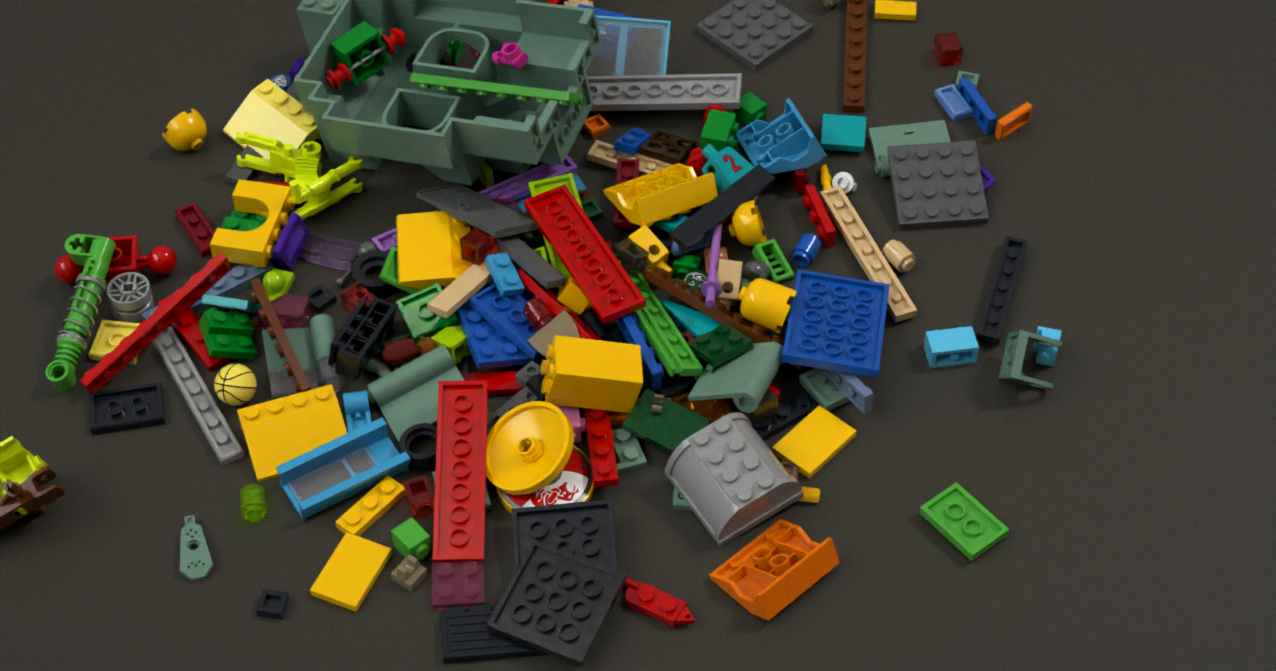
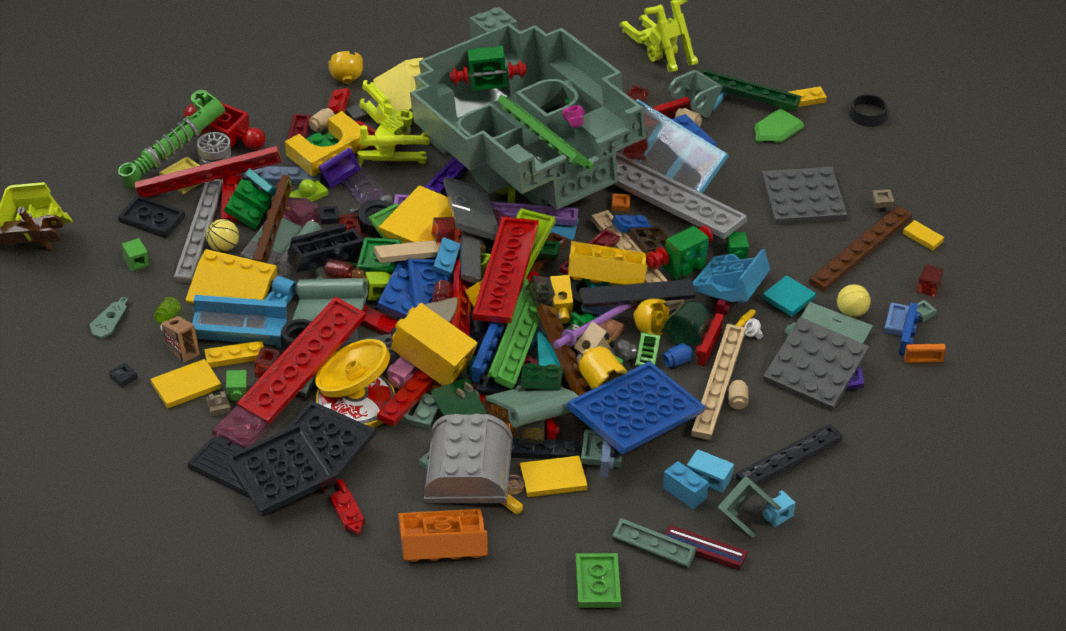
camera: 35 degrees right, 5 degrees down
(154, 461) = (135, 254): none -> bright green brick
(211, 174) = (339, 100): none -> red plate
(213, 201) = (319, 121): none -> tan brick
(301, 524) = (180, 338): none -> medium nougat torso
(403, 190) = (453, 169): none -> dark purple plate
(726, 165) = (666, 267): teal torso -> none
(790, 212) = (687, 323): none -> clear green cylinder
(908, 105) = (853, 300): none -> light yellow piece
(945, 374) = (685, 485): none -> dark azure brick
(974, 450) = (654, 542): none -> sand green tile
(1018, 426) = (710, 548): none -> dark red tile

